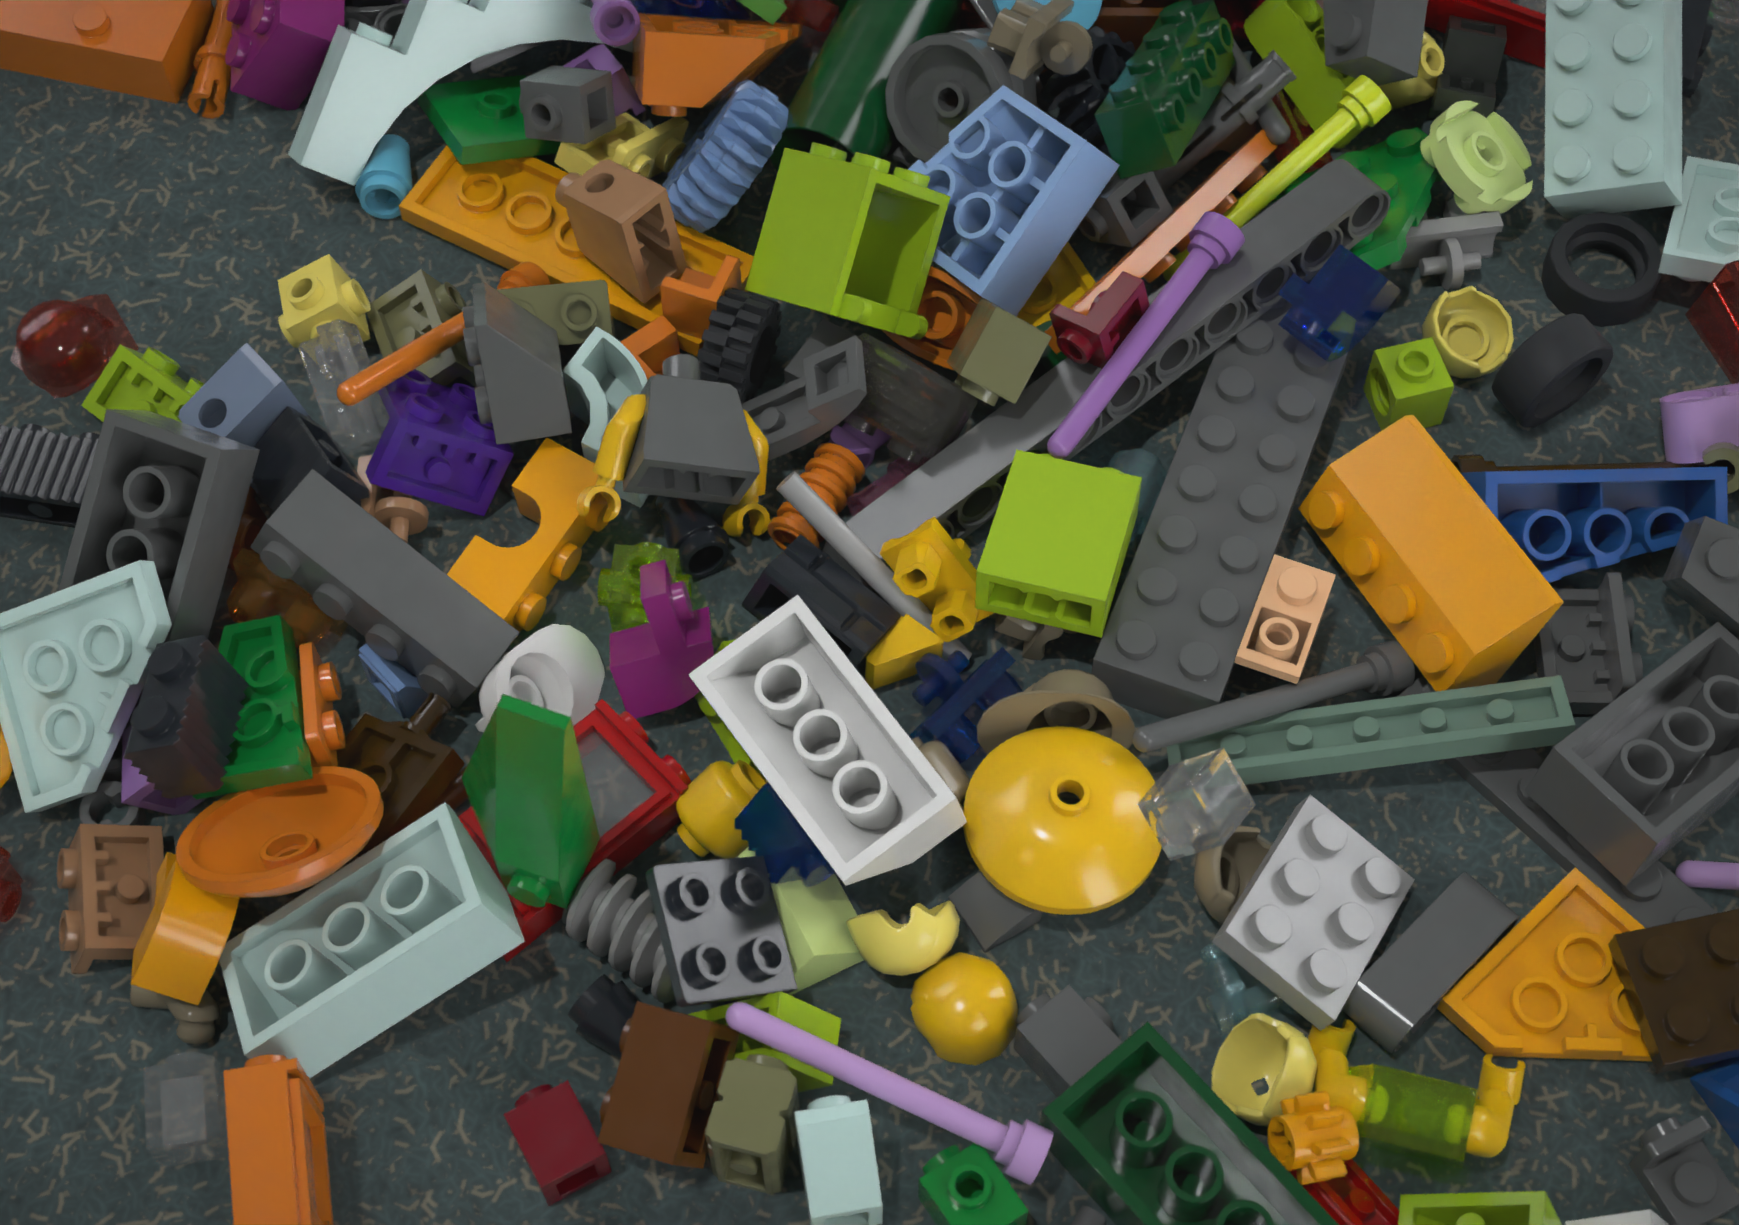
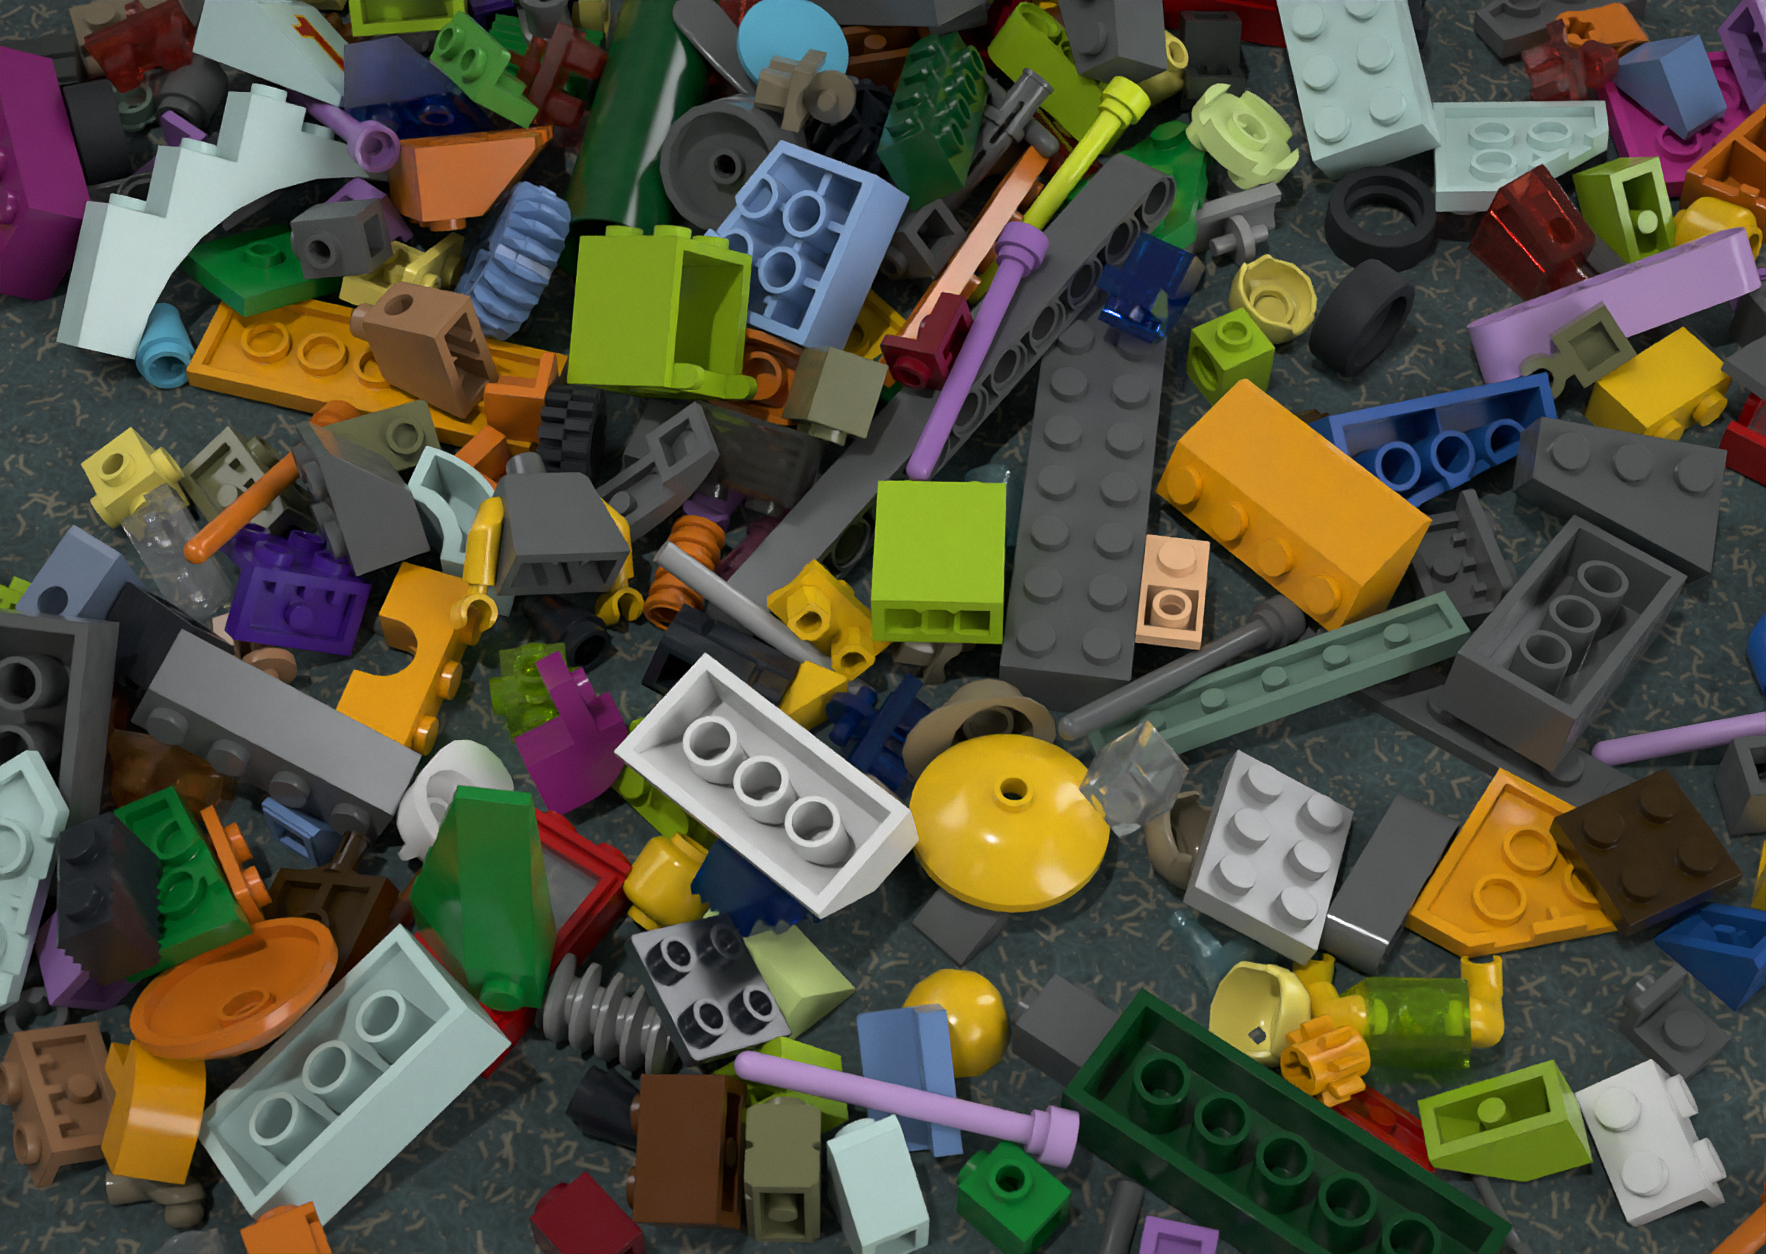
camera: 15 degrees left, 5 degrees down
(903, 1034) = (915, 1052): none -> medium blue panel
(907, 946) = (887, 975): light yellow hair -> none

